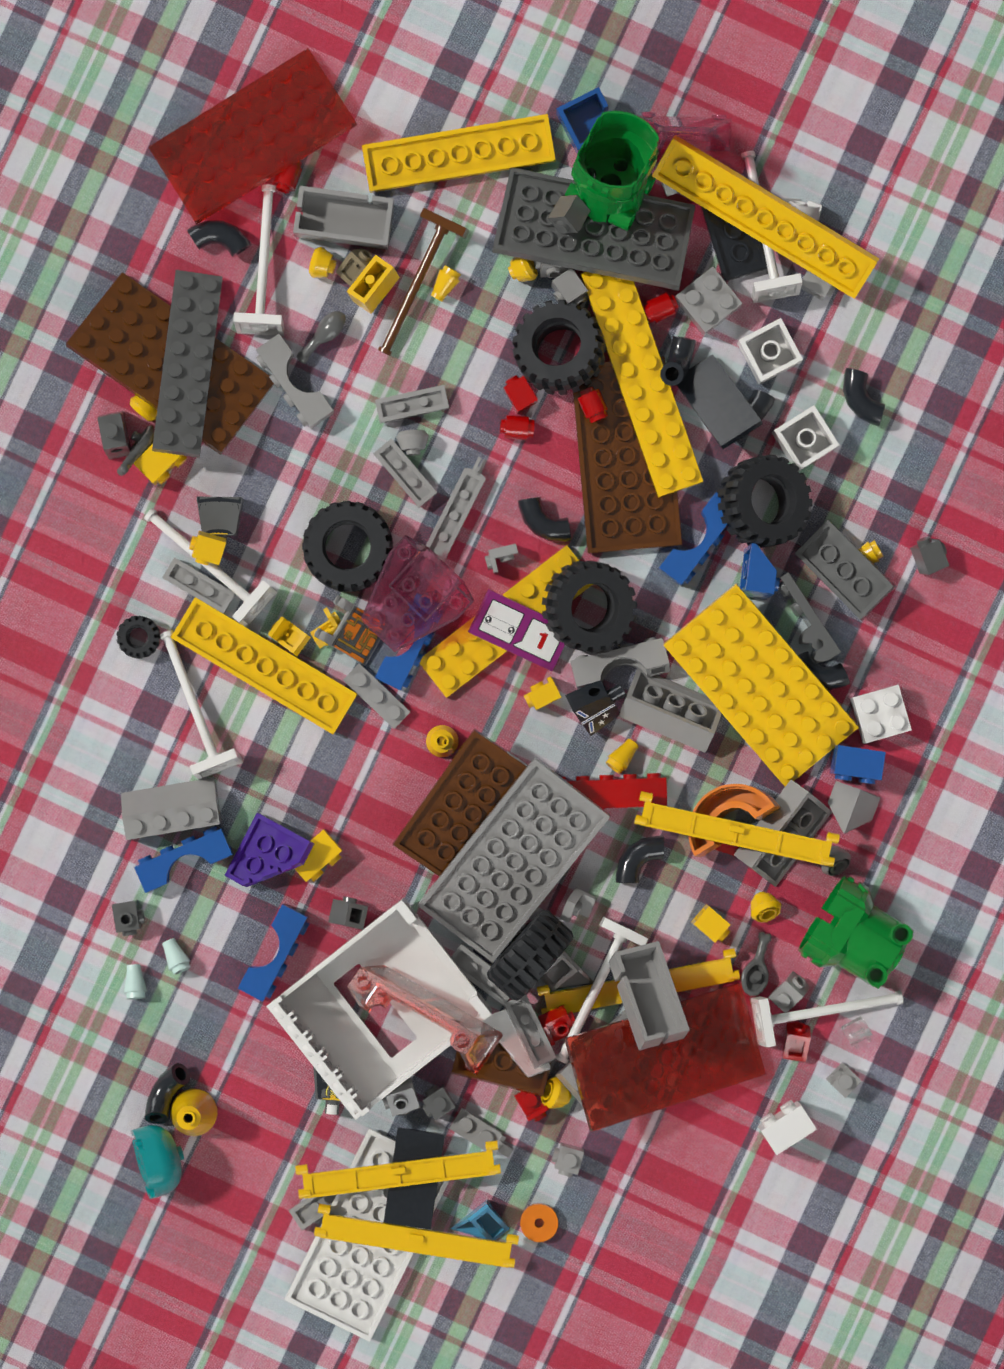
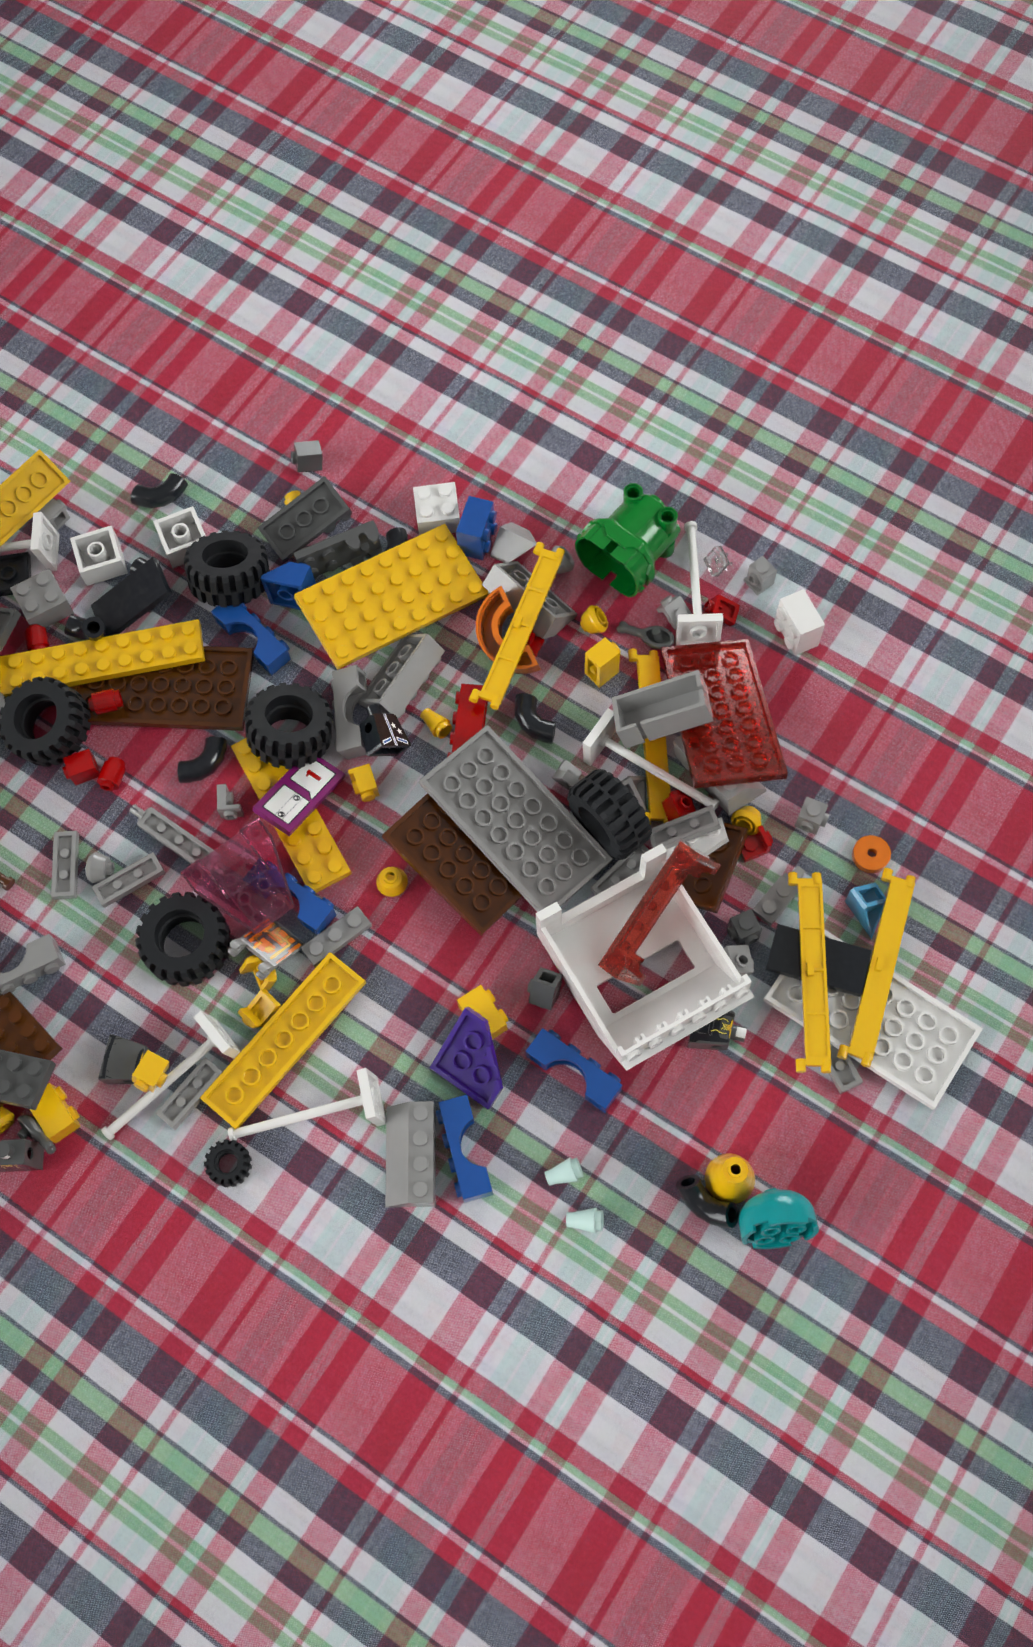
camera: 80 degrees left, 20 degrees down
(128, 917) = (515, 1216): dark grey brick -> none

